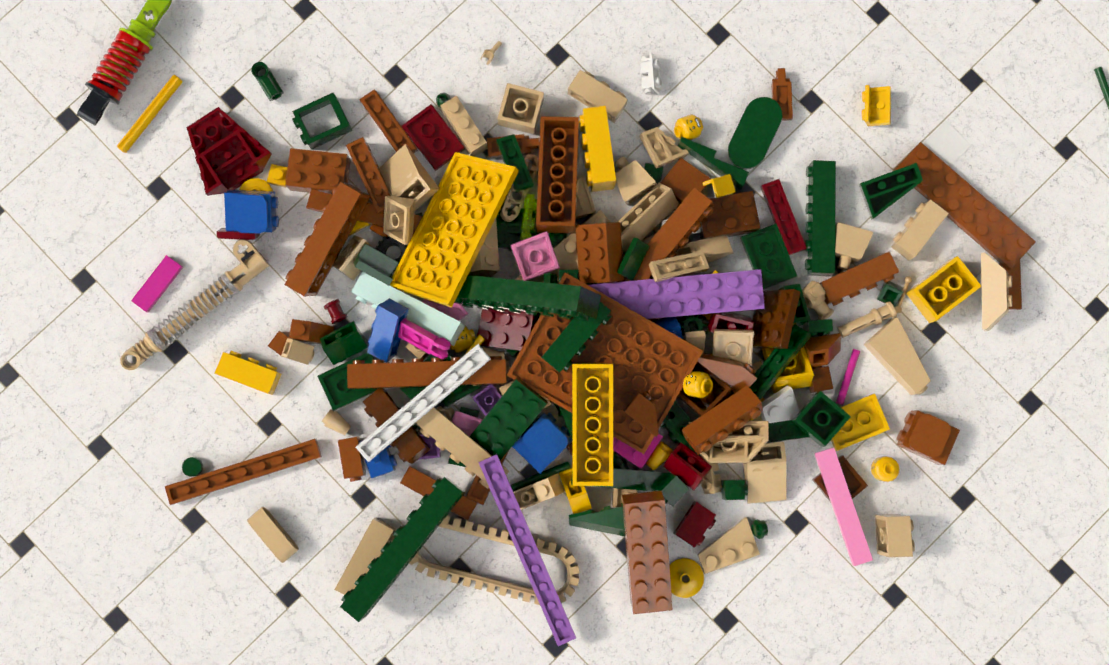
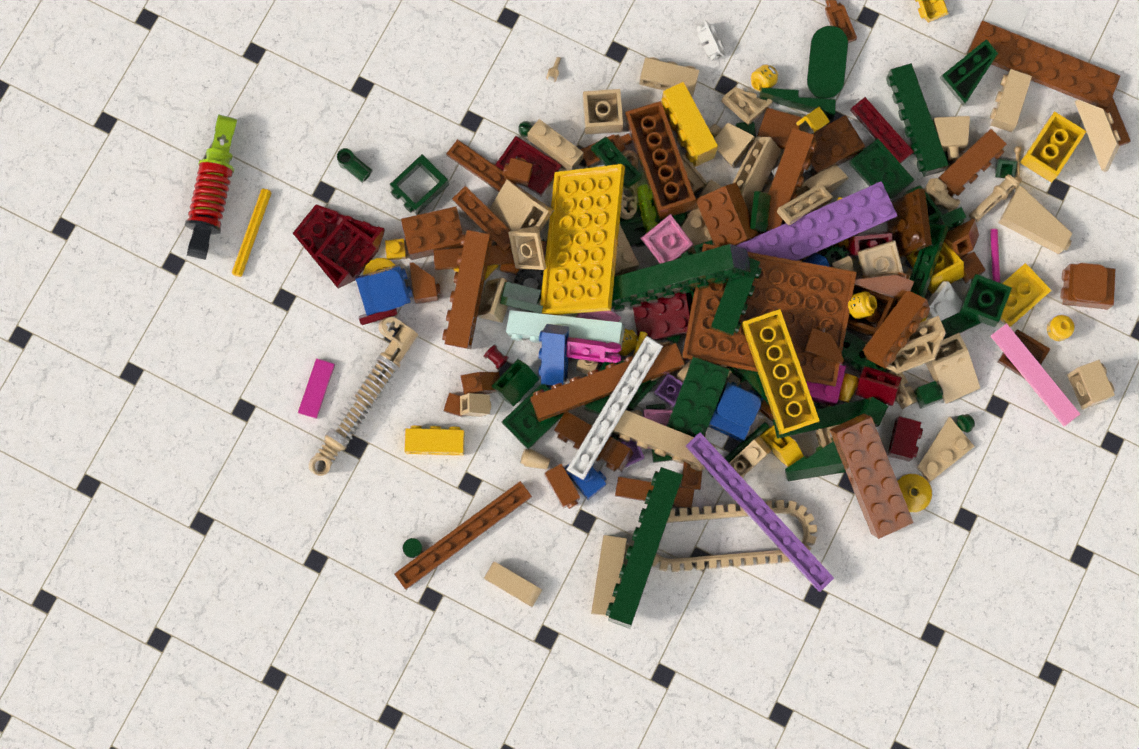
camera: 15 degrees left, 5 degrees down
(290, 219) = (423, 285): none -> dark orange slope
(419, 140) = (518, 171): none -> dark orange brick

